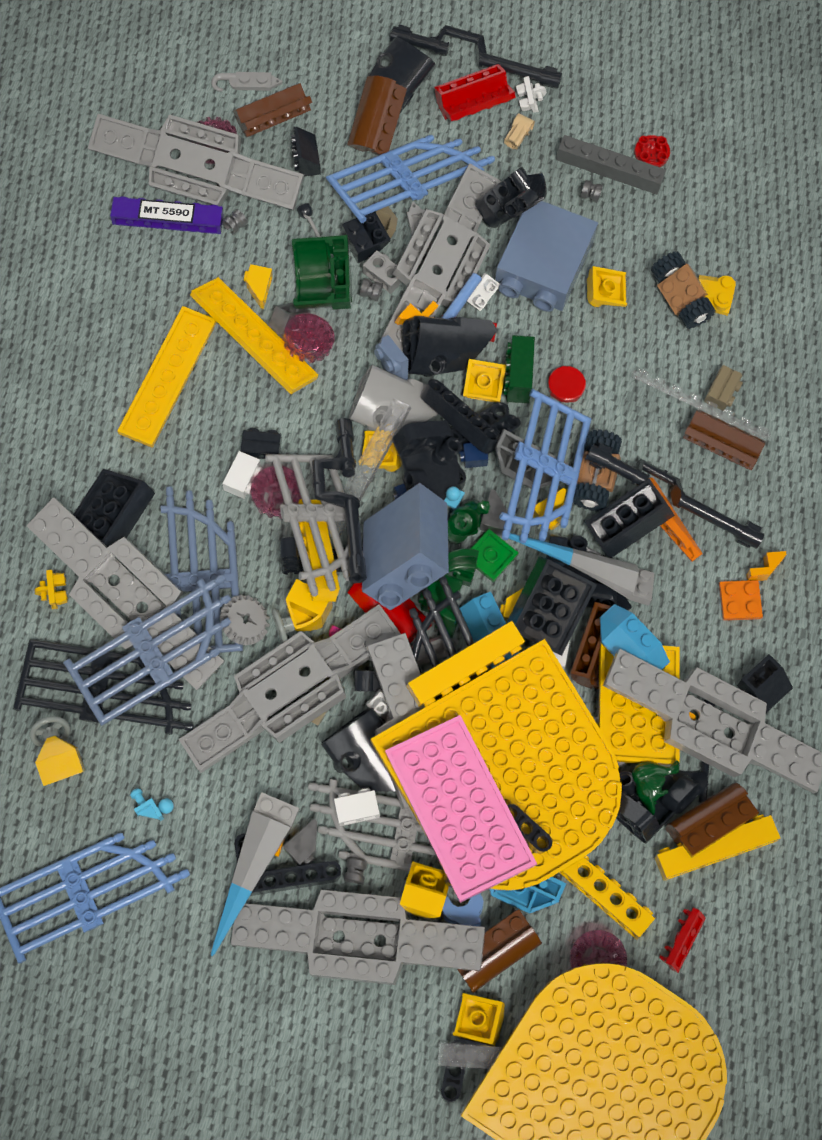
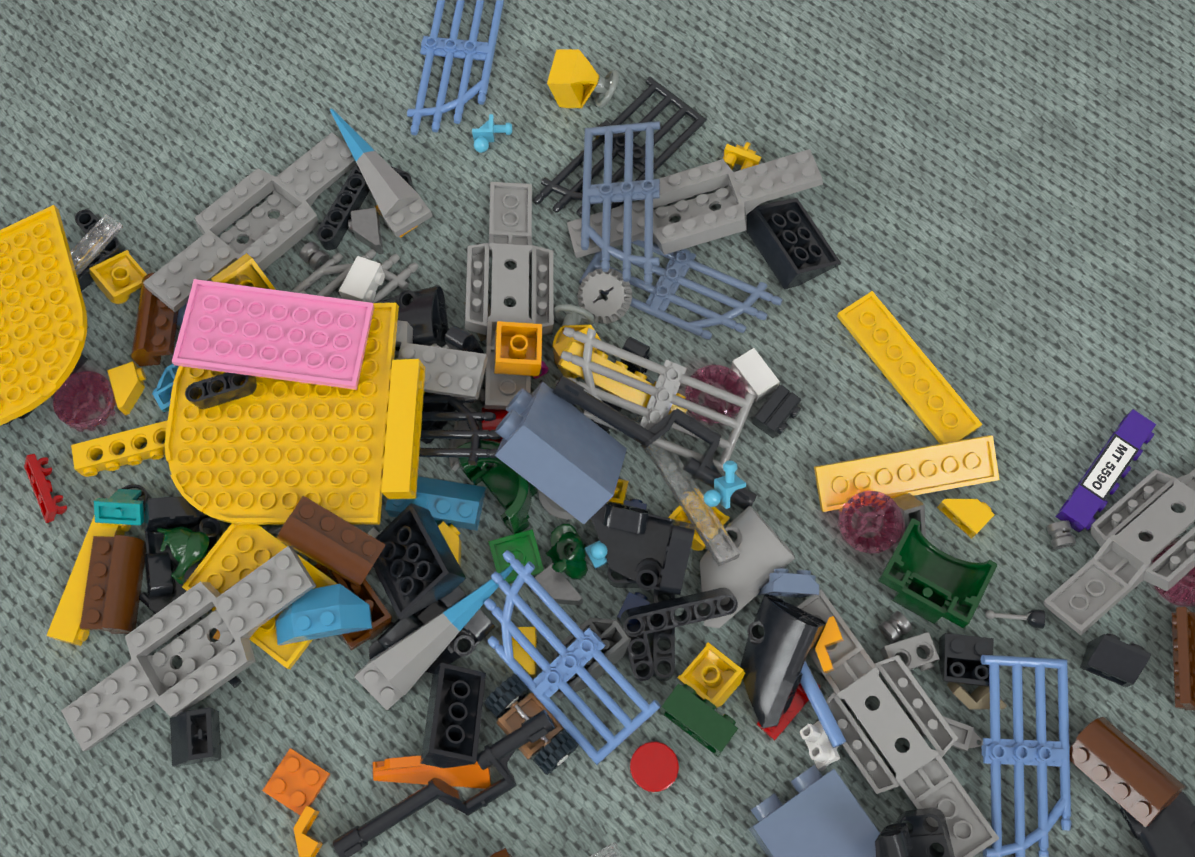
camera: 130 degrees right, 0 degrees up
(343, 633) = (518, 348): none -> light orange brick
(351, 435) = (724, 487): none -> medium azure piece
(562, 938) = (127, 385): none -> yellow slope
(579, 662) = (330, 541): none -> reddish brown brick
(657, 853) = (121, 507): none -> teal piece

